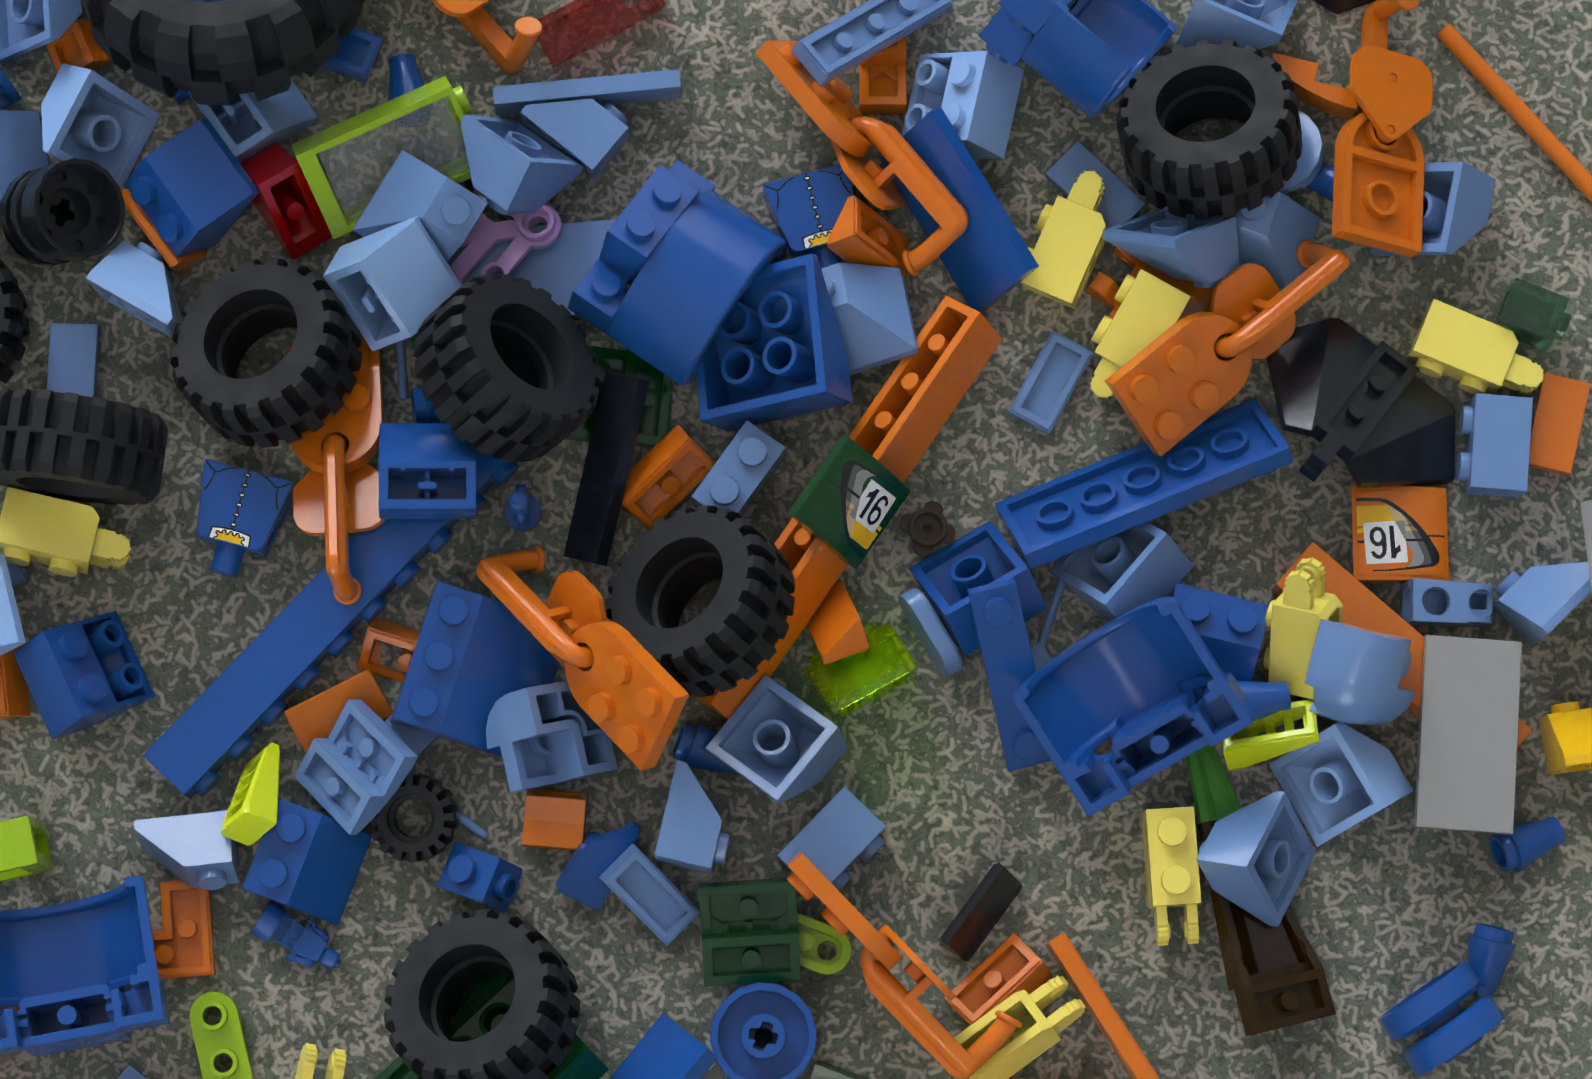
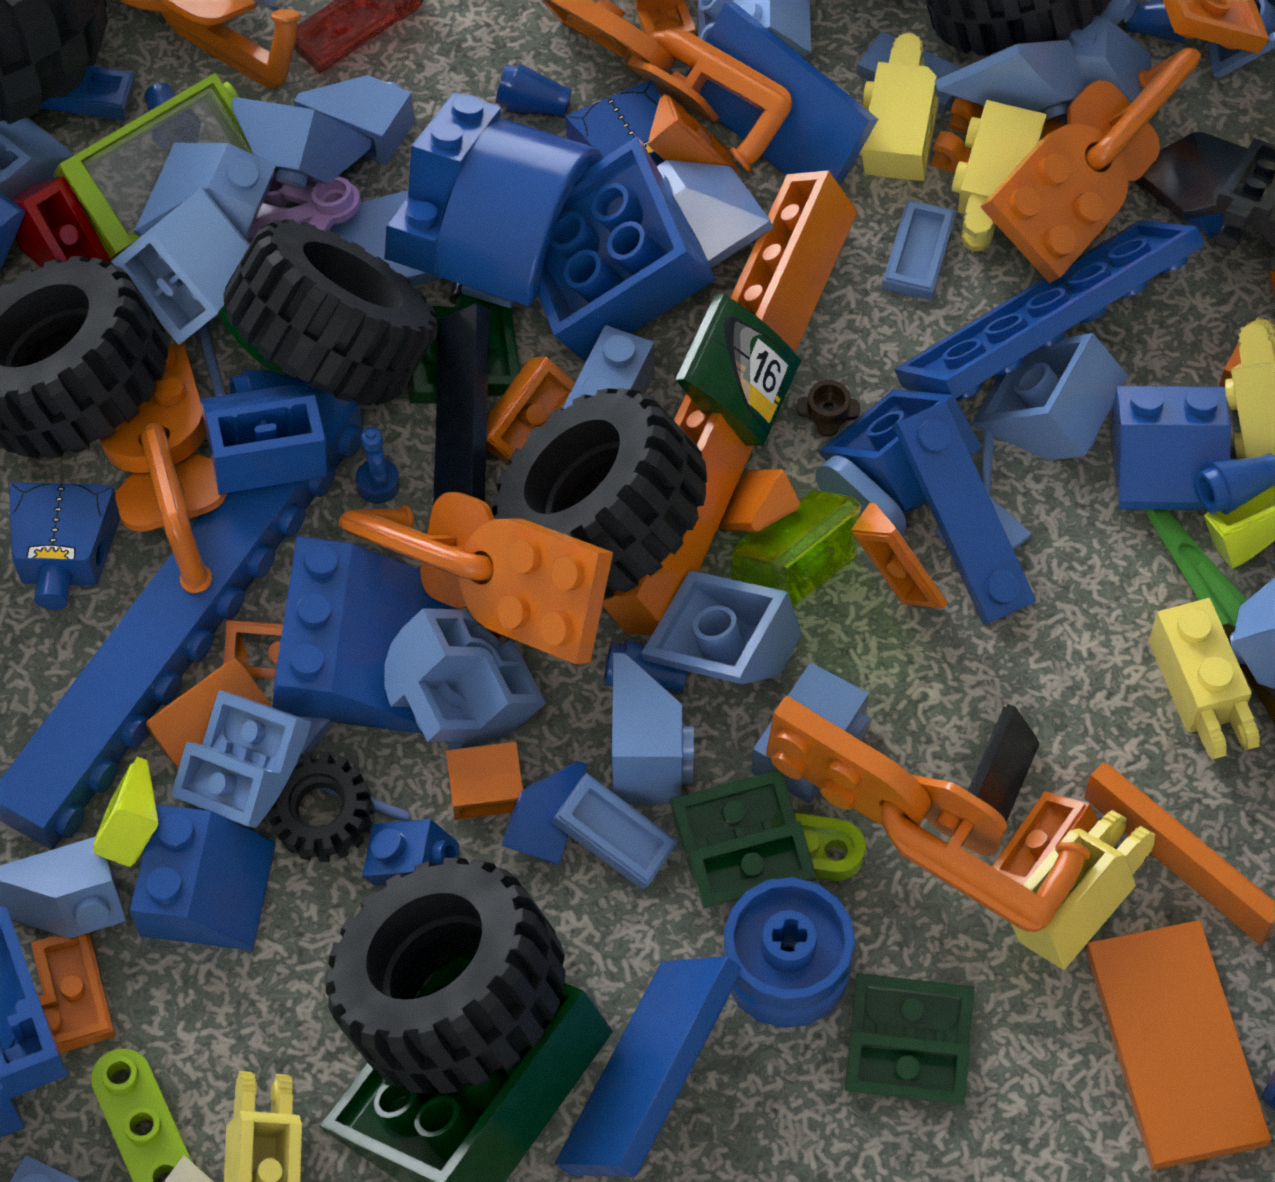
camera: 10 degrees left, 20 degrees down
(305, 943) = (215, 973): blue piece -> none
(603, 89) = (408, 66): medium blue tile -> none
(741, 138) = (531, 92): none -> blue cone
(943, 704) = (896, 560): none -> orange slope
(1143, 689) = (1111, 491): blue piece -> none

